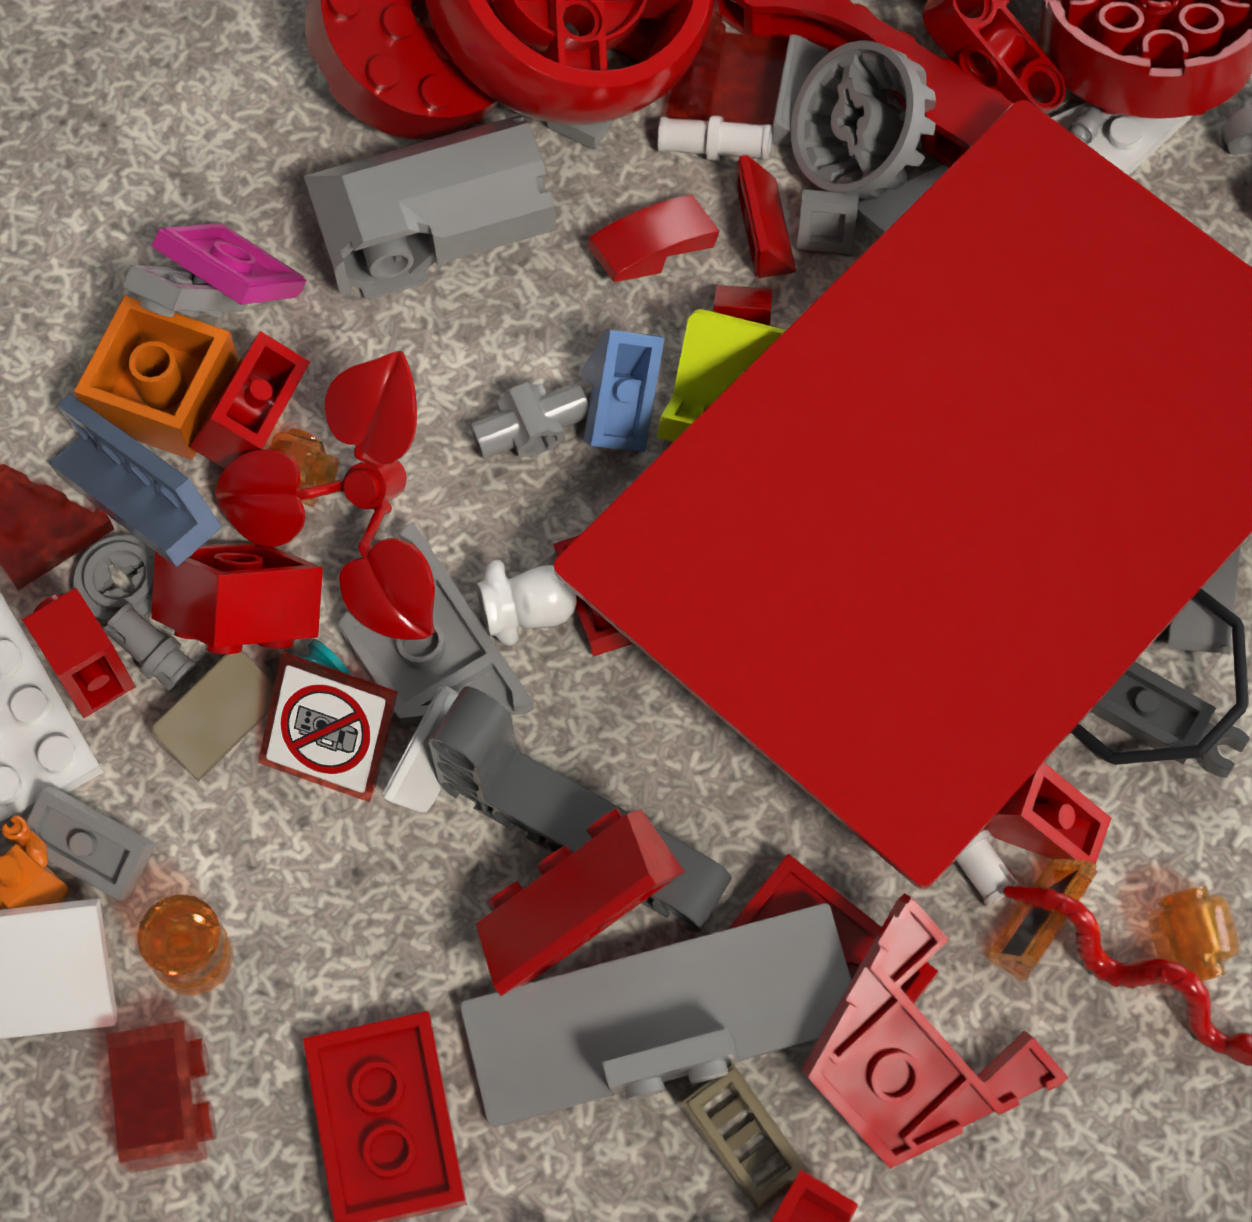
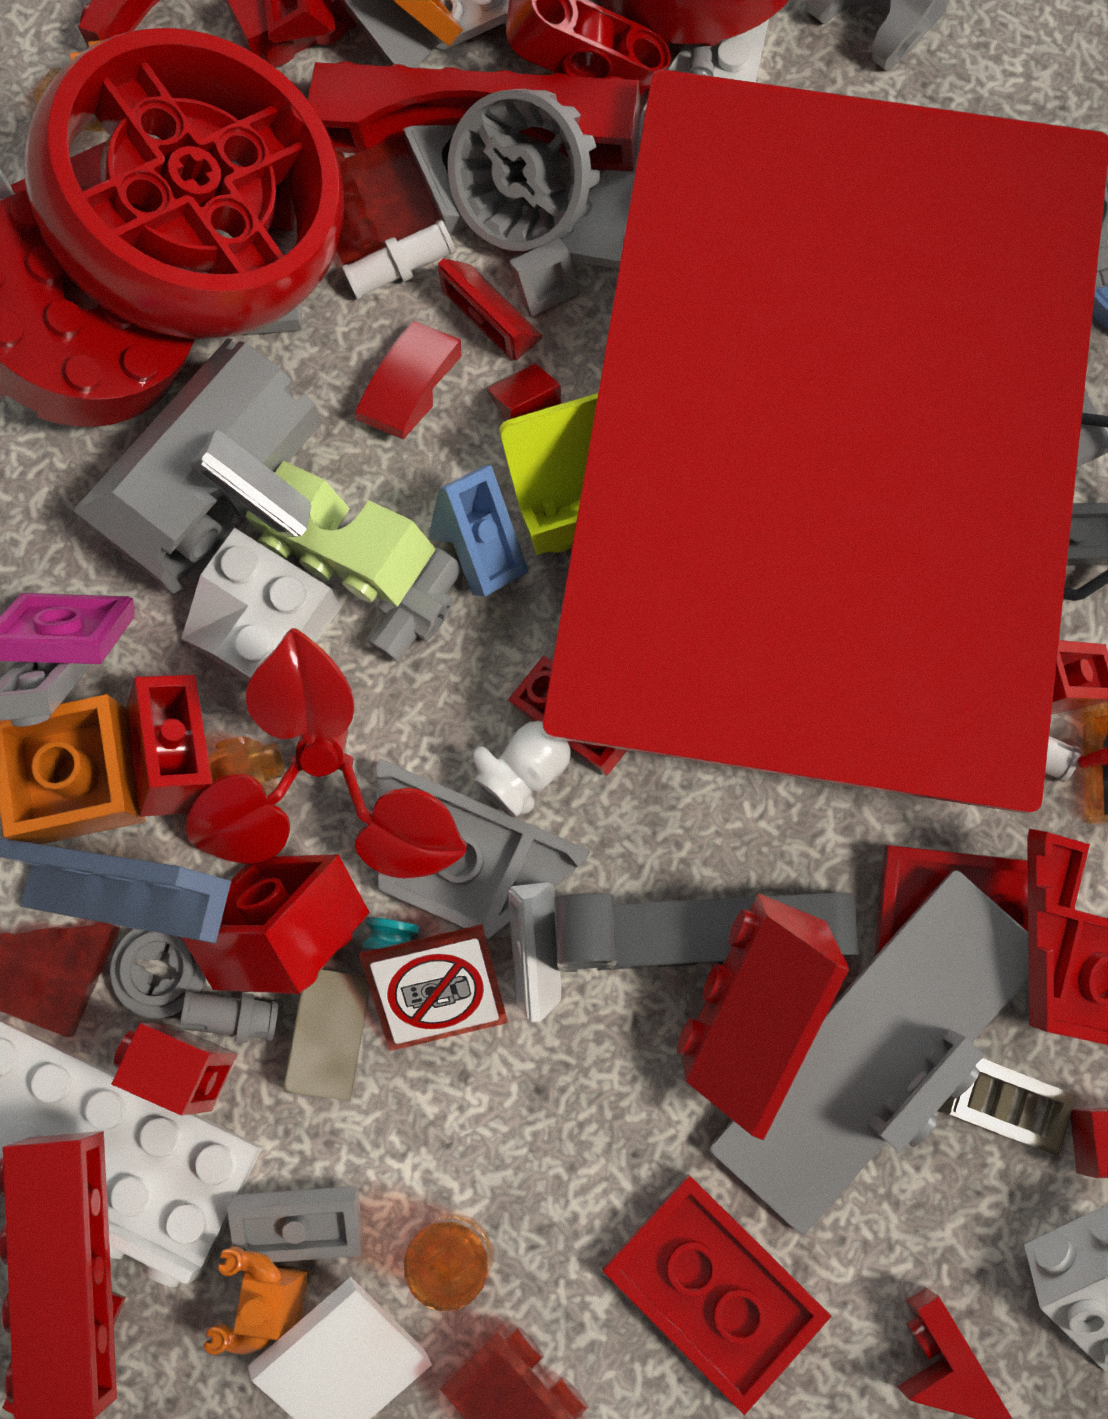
camera: 30 degrees left, 10 degrees up
(405, 318) = (250, 602): none -> white slope
(455, 234) = (252, 485): none -> light grey slope
(515, 344) = (372, 554): none -> yellowish green arch

